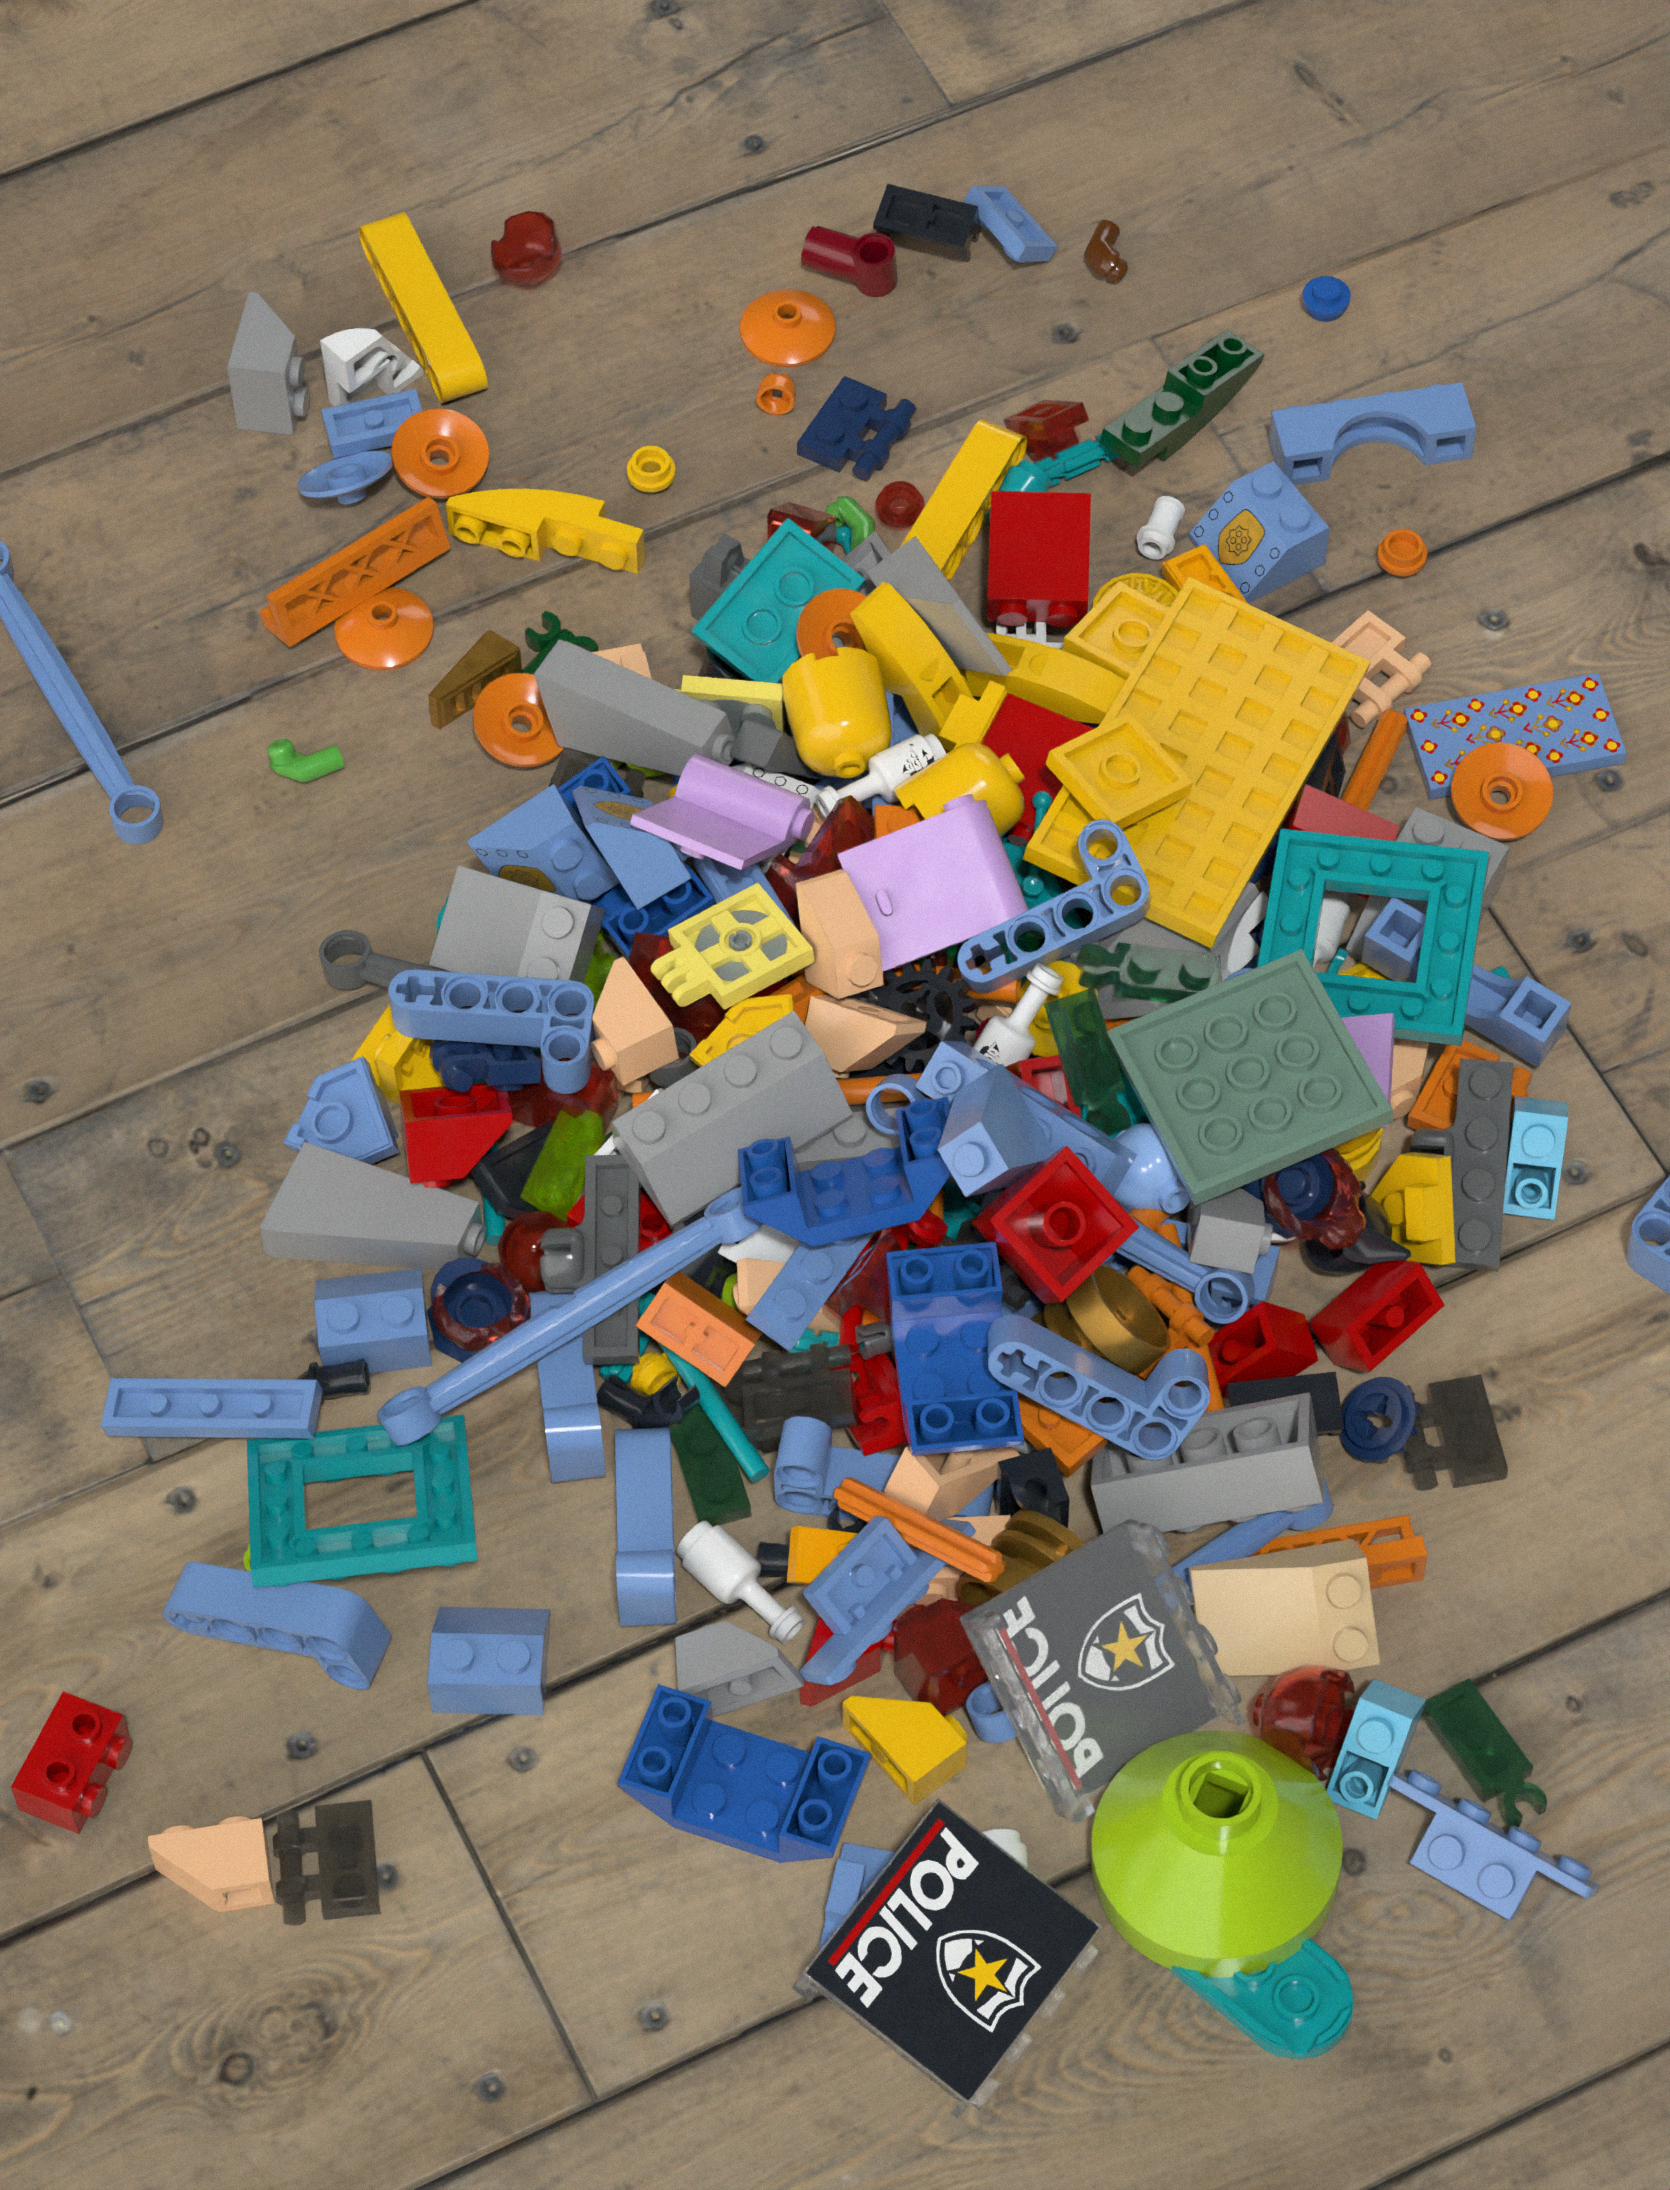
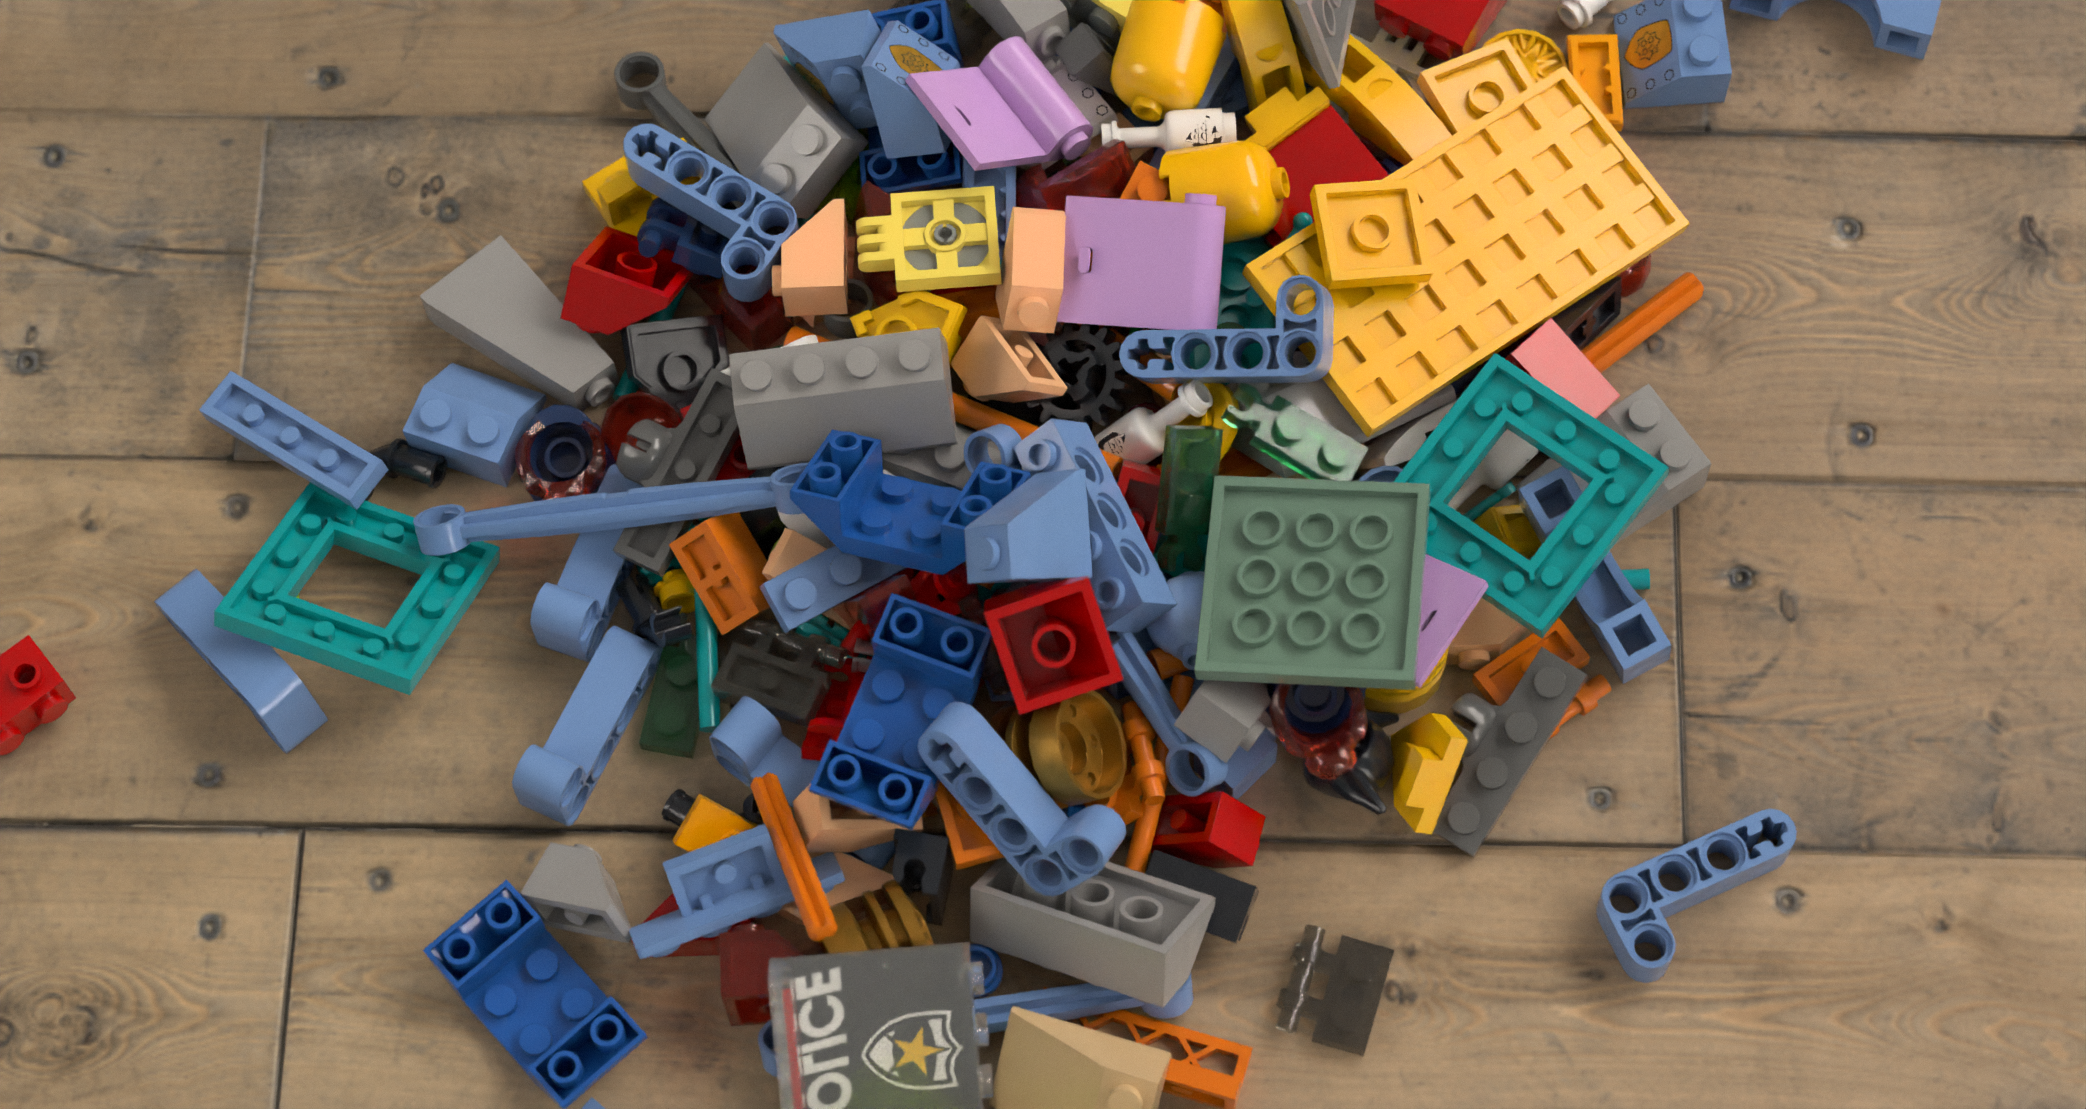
camera: 30 degrees right, 10 degrees up
(218, 1863) = (78, 851): light nougat slope -> none
(345, 1859) = (178, 899): clear smoke plate -> none
(347, 1115) = (554, 226): medium blue plate -> none
(489, 1660) = (396, 777): medium blue slope -> none
(561, 1163) = (686, 370): clear neon green hinge -> none
(722, 1563) = (638, 806): white piece -> none
(908, 1742) = (697, 1037): yellow slope -> none
(1375, 1398) = (1256, 953): dark blue gear -> none
(1376, 1314) = (1328, 849): red brick -> none
(1382, 646) = (1708, 205): light nougat plate -> none
(1402, 553) = (1797, 126): orange plate -> none
(1508, 770) = (1749, 376): orange dish -> none
(1535, 1157) = (1565, 768): medium azure slope -> none
(1558, 721) = (1795, 352): medium blue tile -> none

